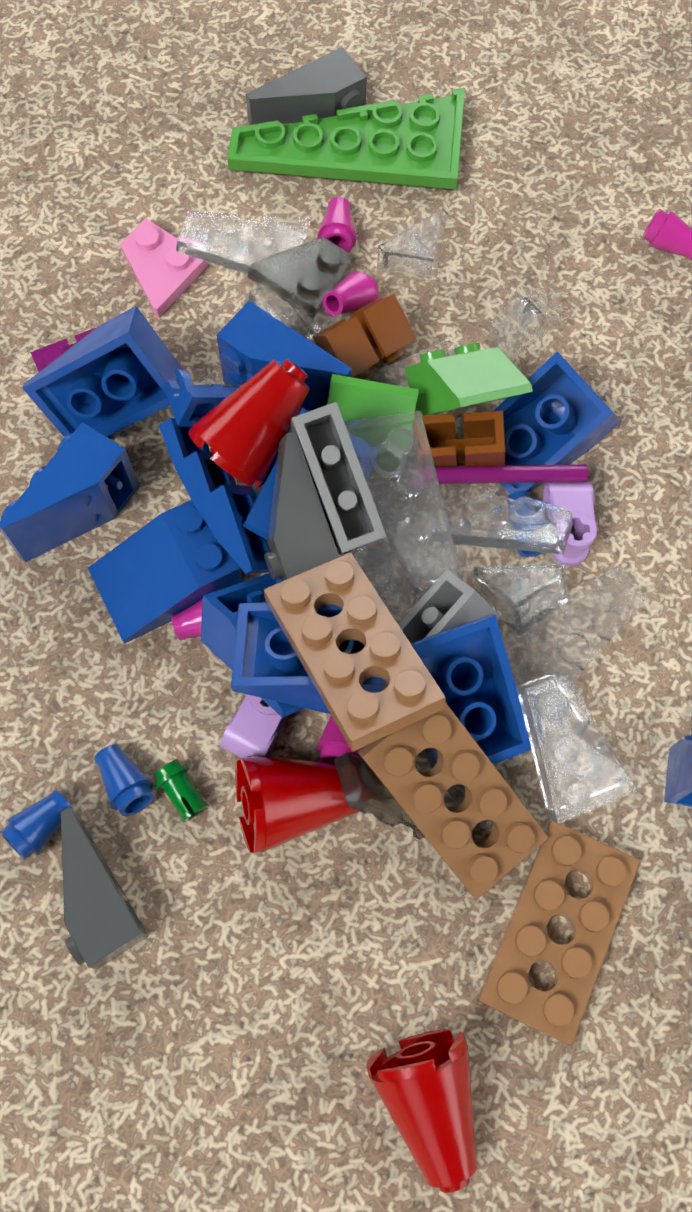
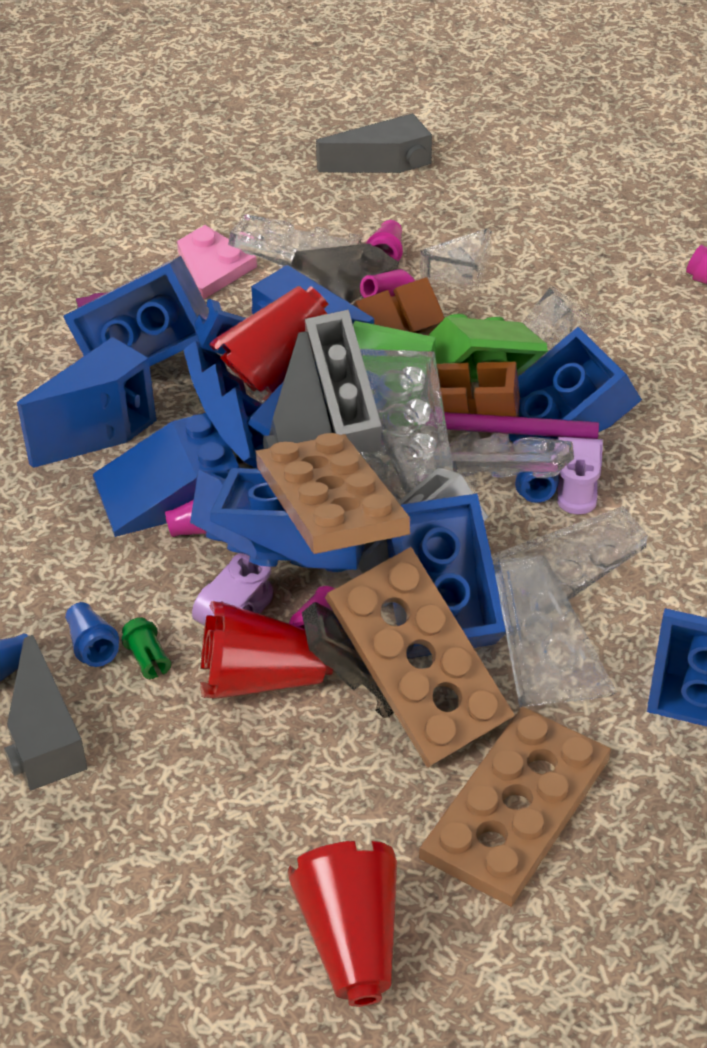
camera: 10 degrees right, 25 degrees down
(362, 143) = (422, 187): bright green wing -> none
(522, 593) = (522, 514): clear slope -> none

